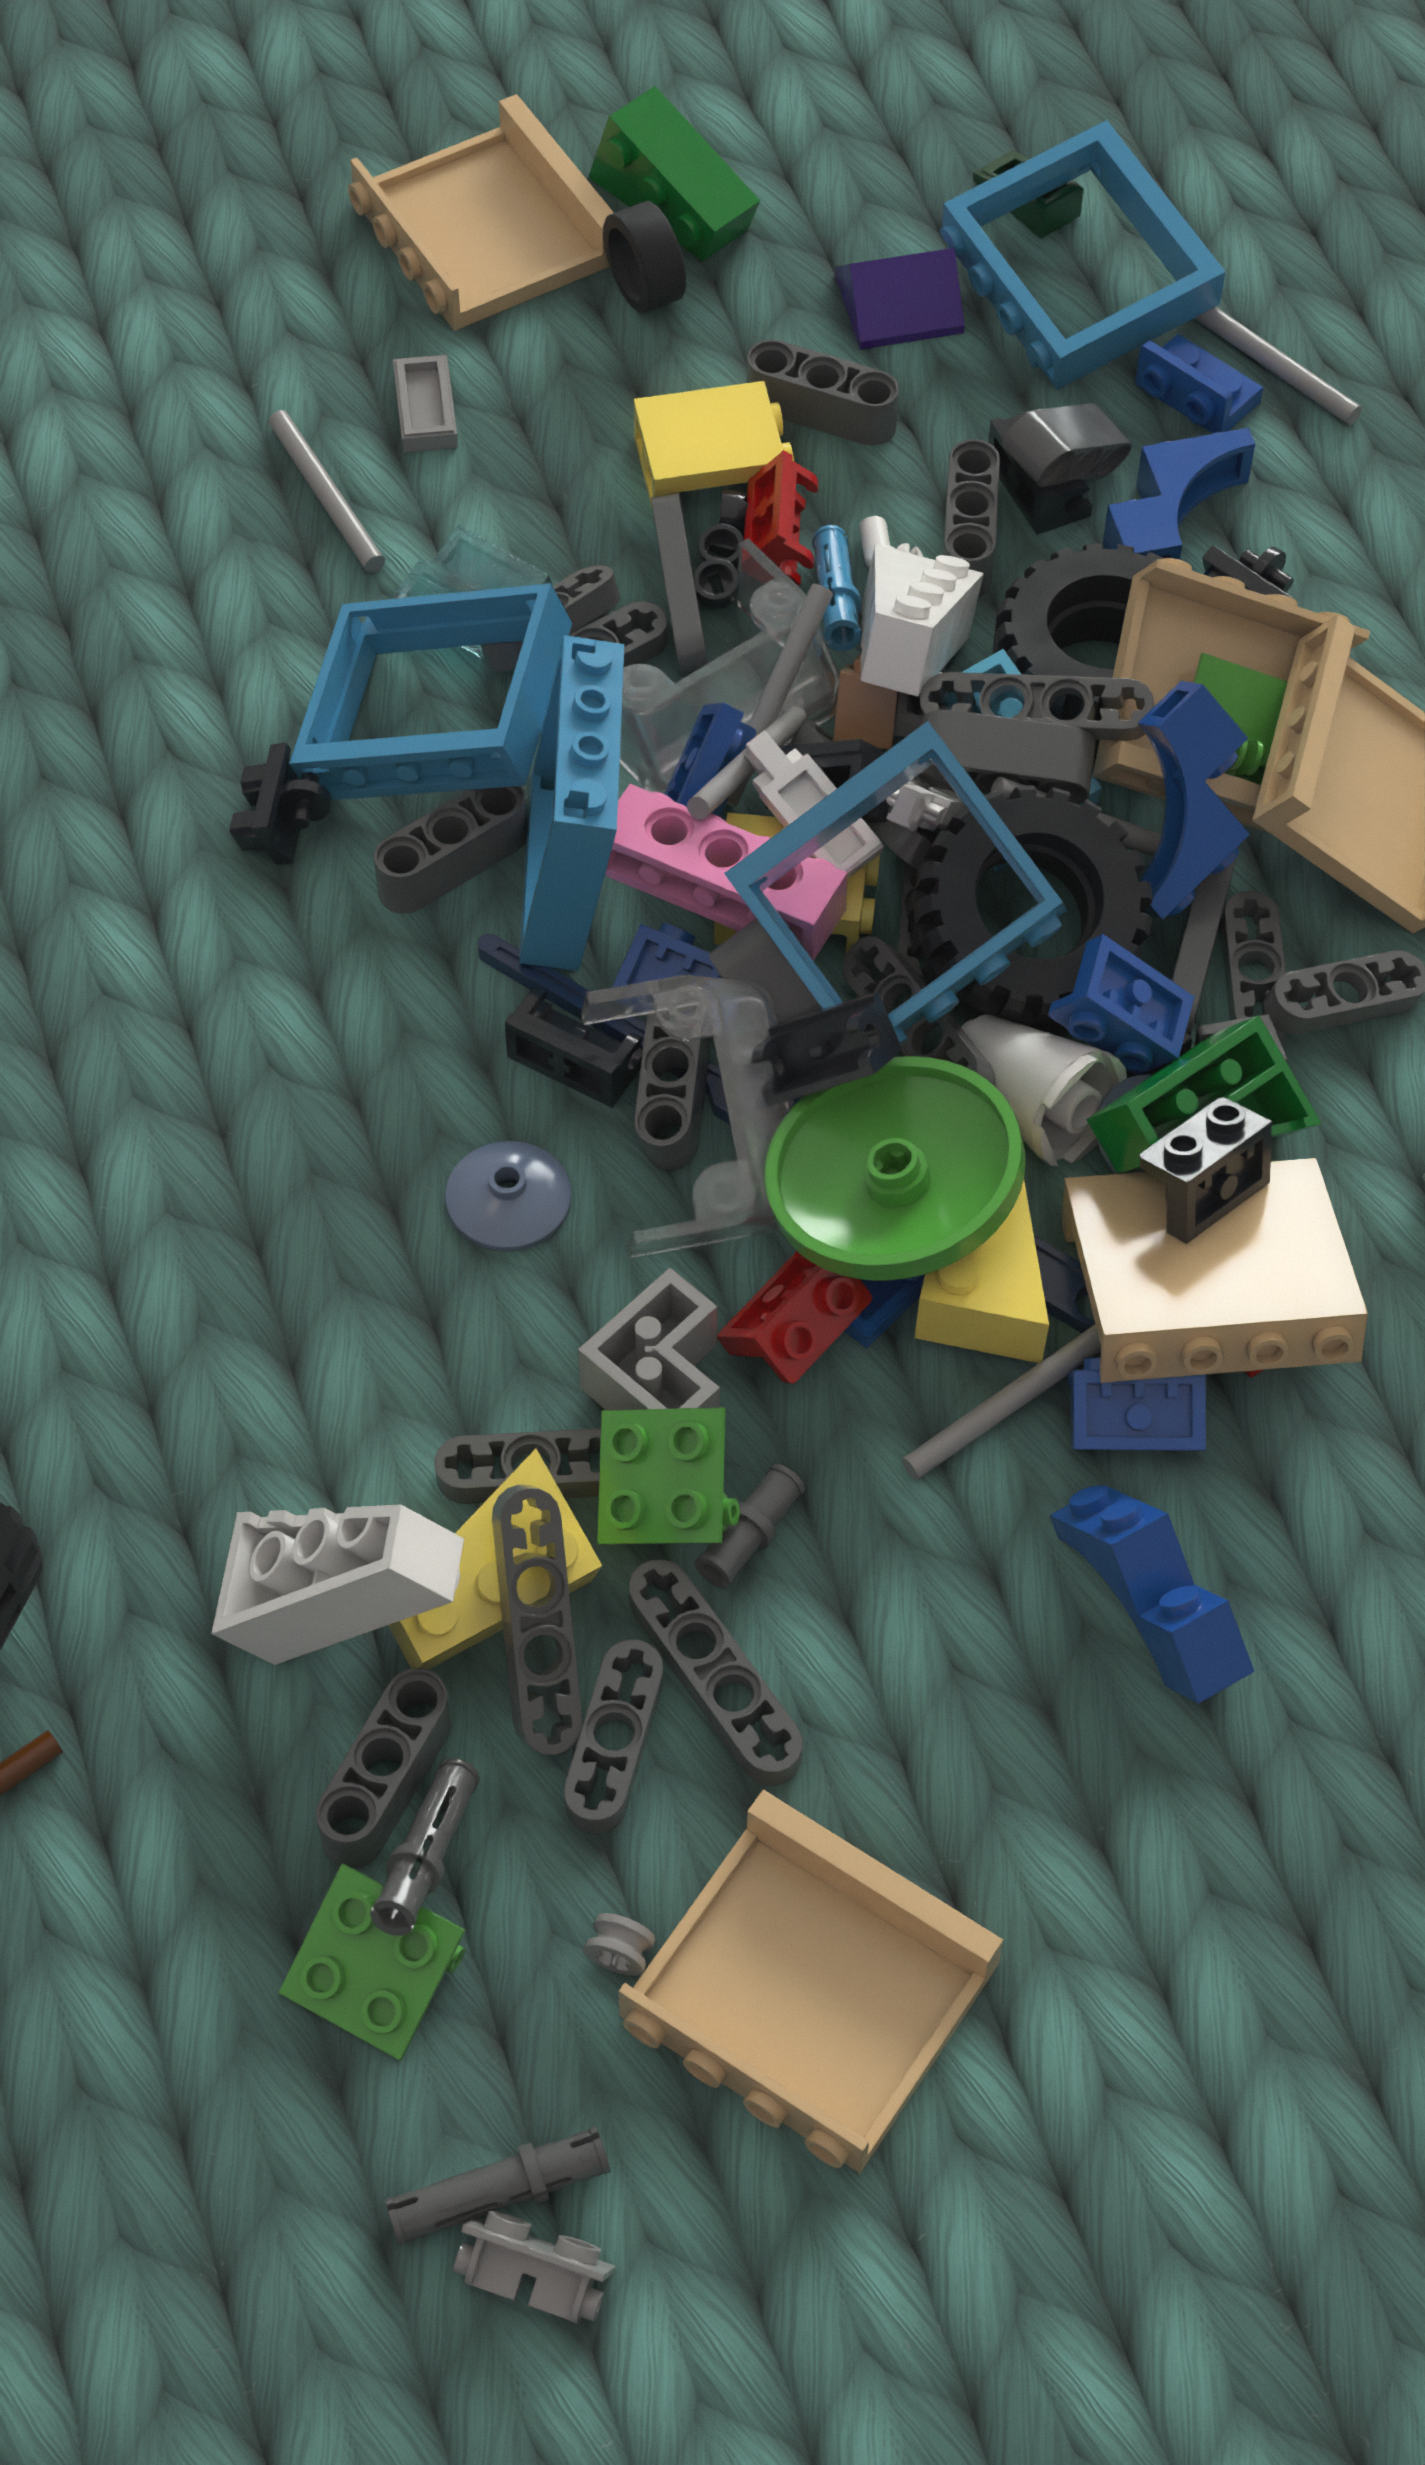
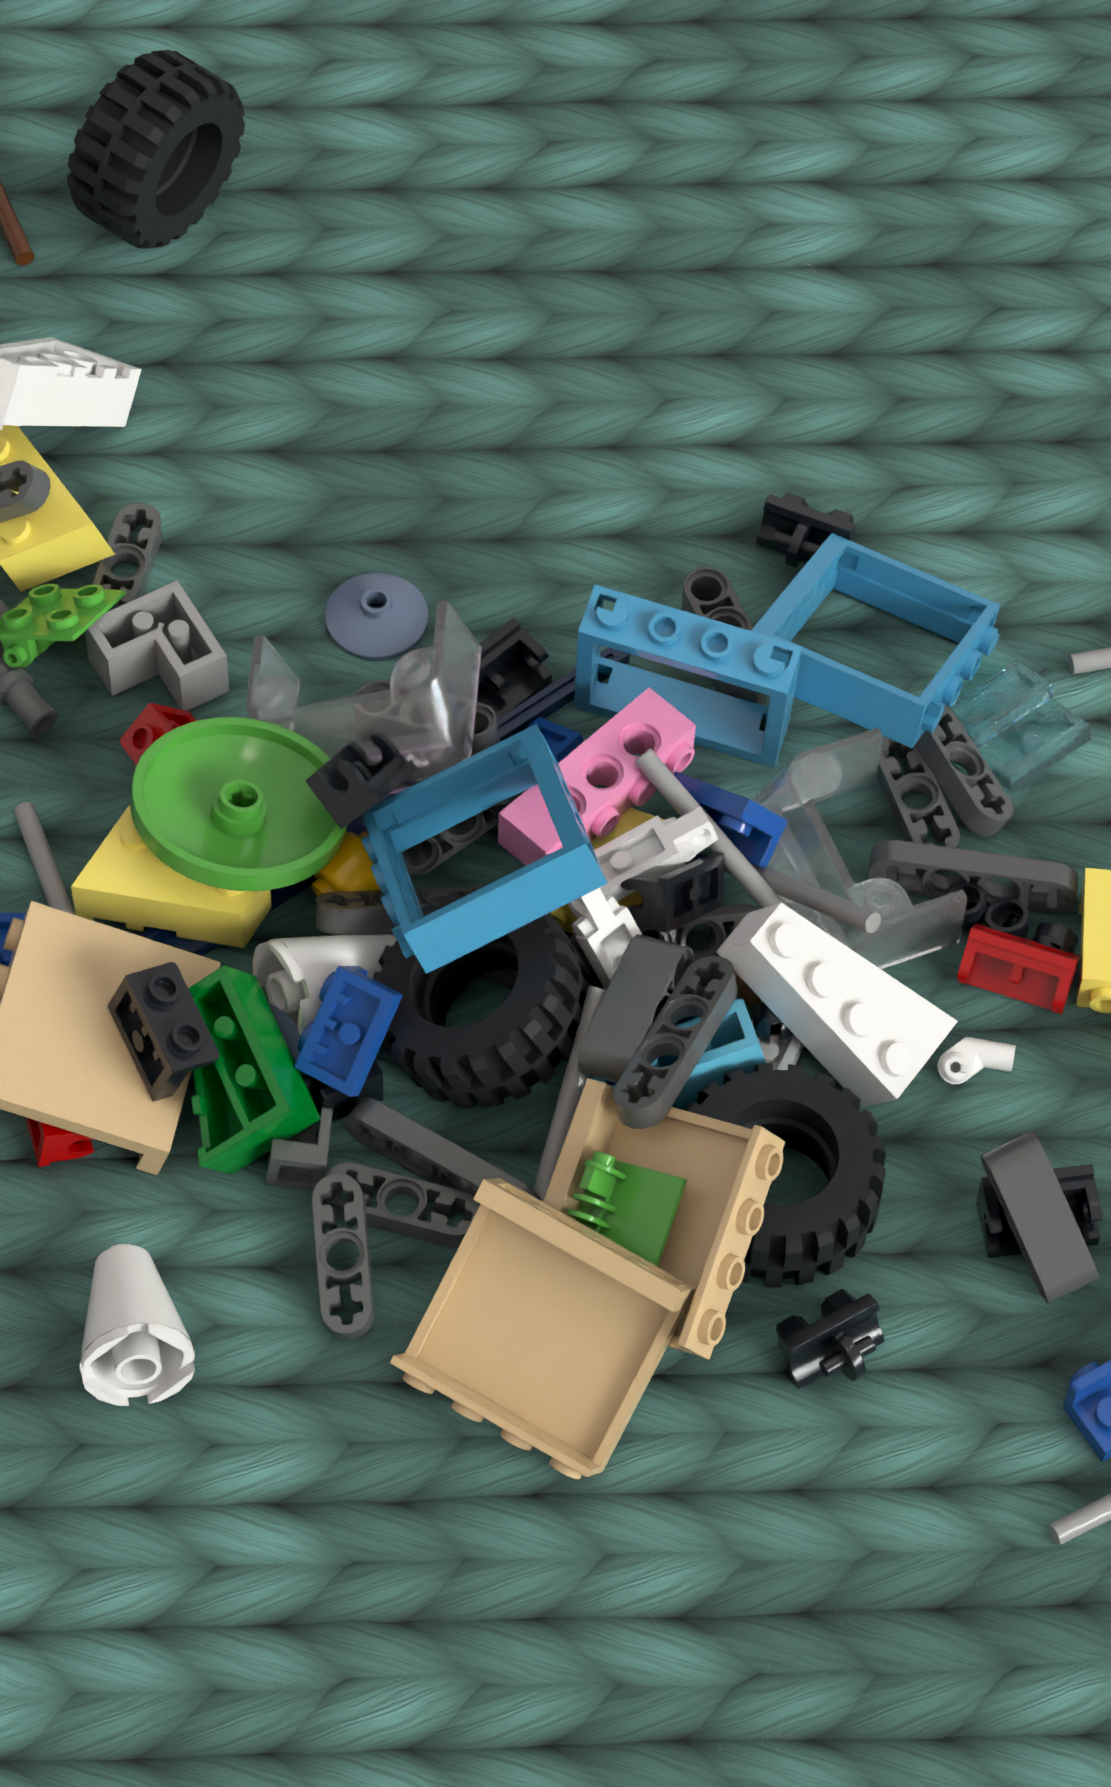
camera: 105 degrees right, 0 degrees up
(836, 575) = (944, 993): dark azure pin -> none
(972, 506) = (974, 1109): dark grey beam -> none
(1171, 484) = (929, 1277): blue arch -> none
(1199, 833) = (567, 1127): blue arch -> none

